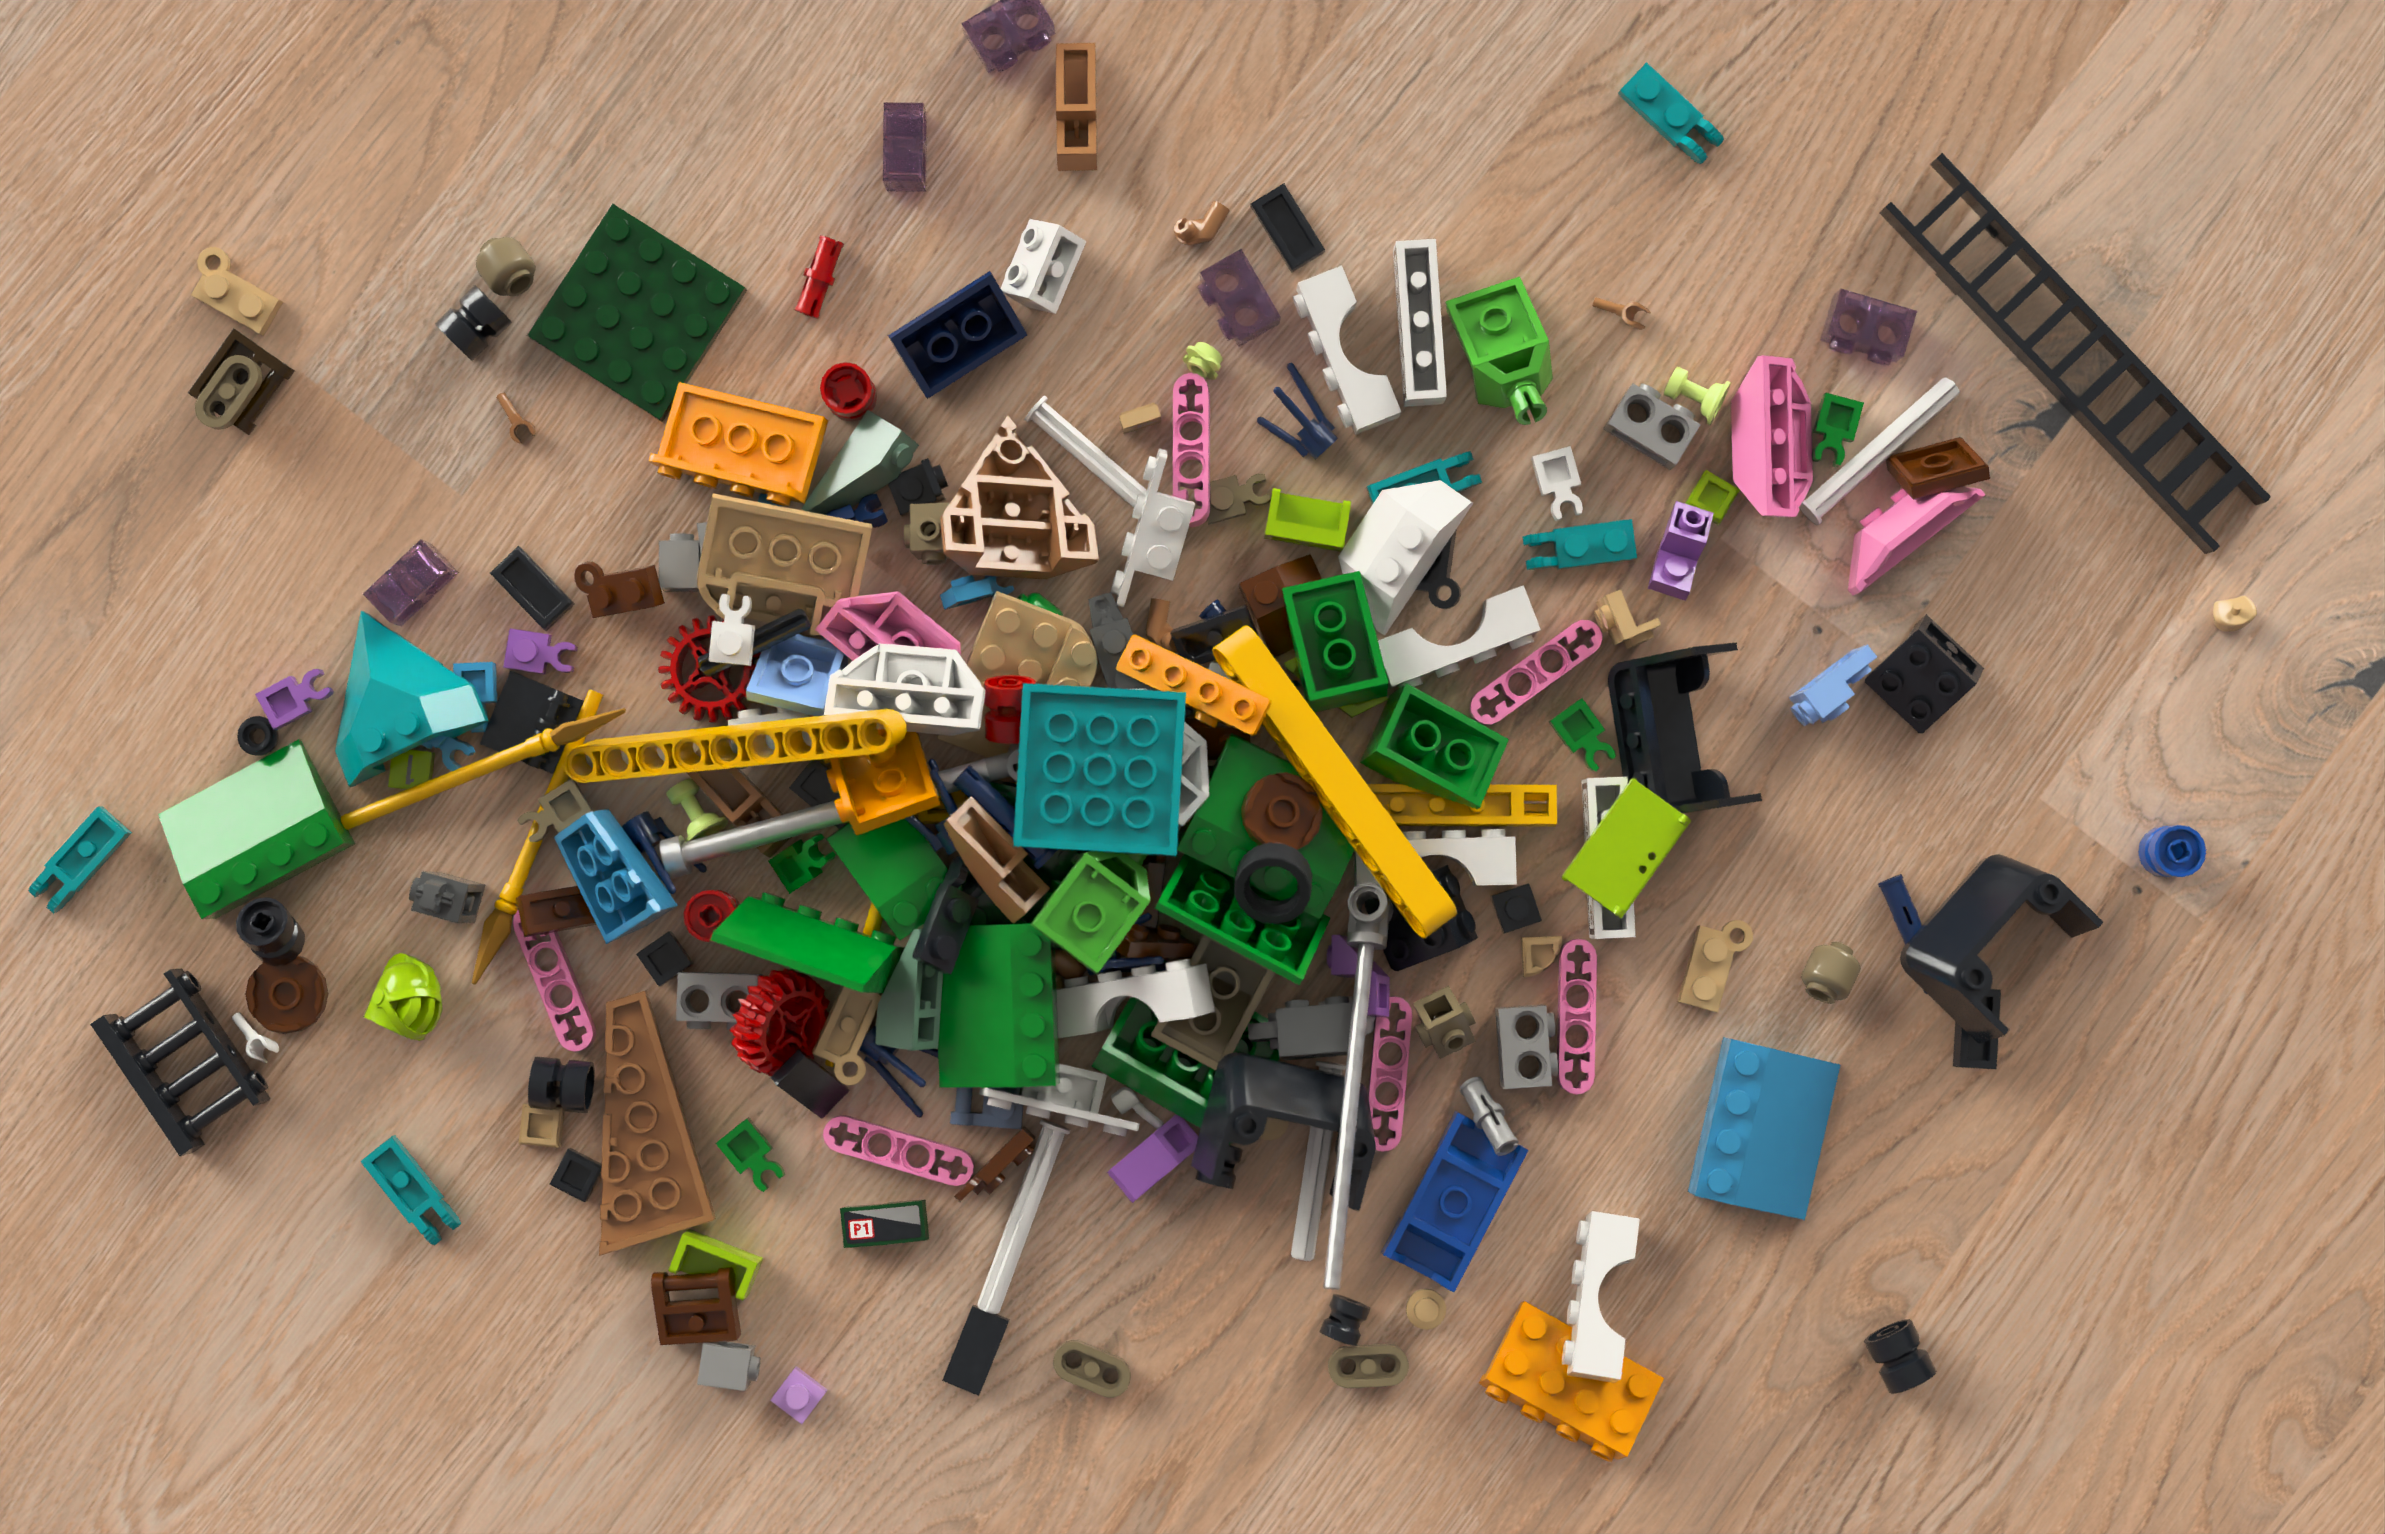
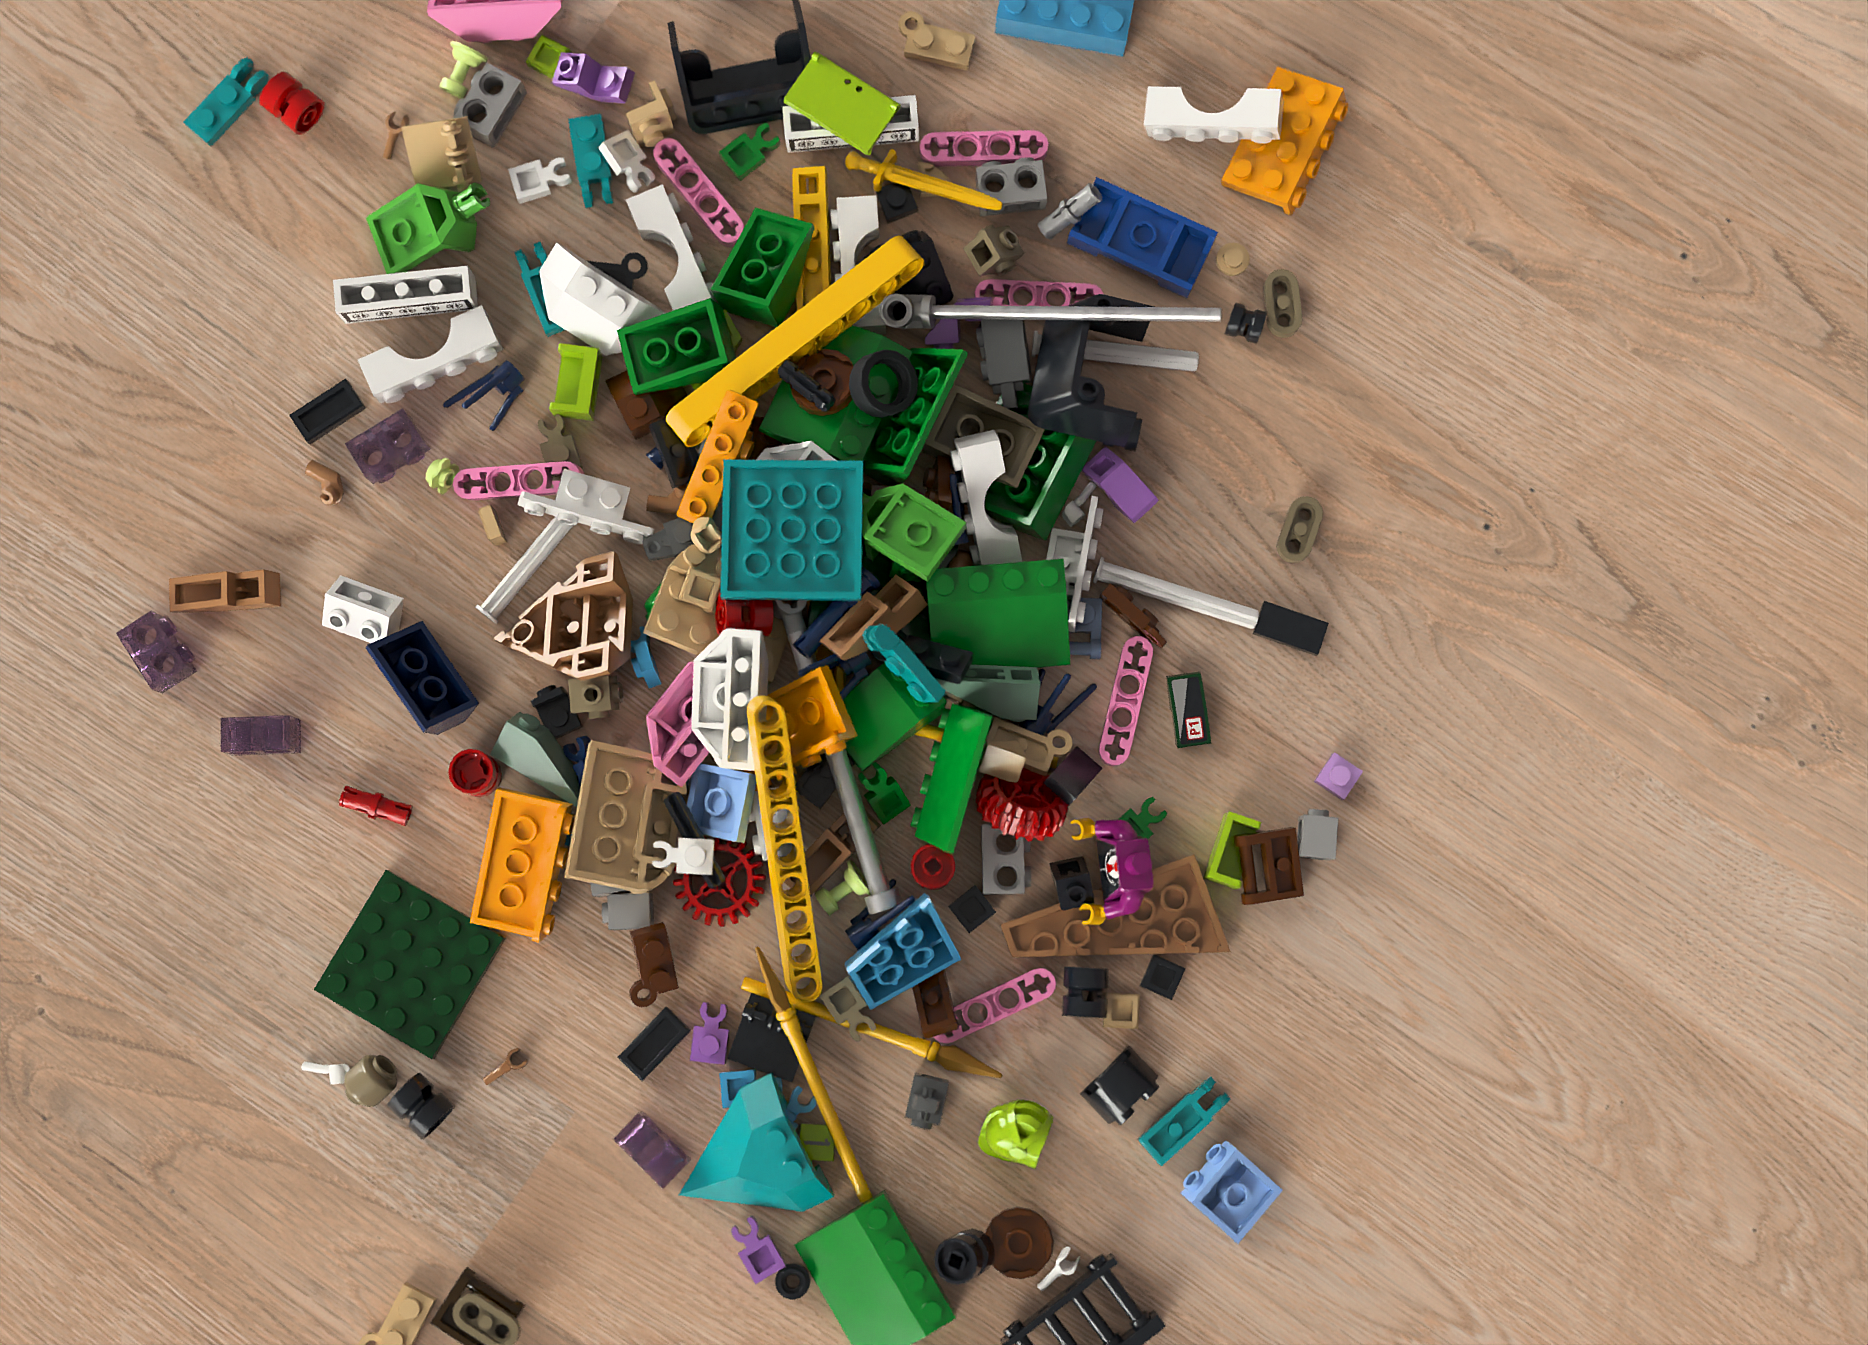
camera: 90 degrees left, 5 degrees down
(328, 1238) = (1230, 1190): none -> light blue plate
(454, 1121) = (1121, 1087): none -> black cylinder
(520, 228) = (336, 1071): none -> white hand
(688, 1076) = (1072, 883): none -> black bracket
(698, 1135) = (1123, 867): none -> magenta torso
(826, 1004) = (1002, 760): none -> tan slope
(936, 892) = (903, 663): none -> teal hinge
(1043, 659) = (700, 588): none -> tan tile
(1105, 668) = (706, 535): none -> tan piece
(1274, 792) = (806, 385): none -> black axle
(1533, 939) = (889, 171): none -> yellow sword
(1581, 585) = (626, 156): none -> white plate
(1590, 369) = (442, 153): none -> tan hinge
(1666, 186) = (288, 100): none -> red wheel

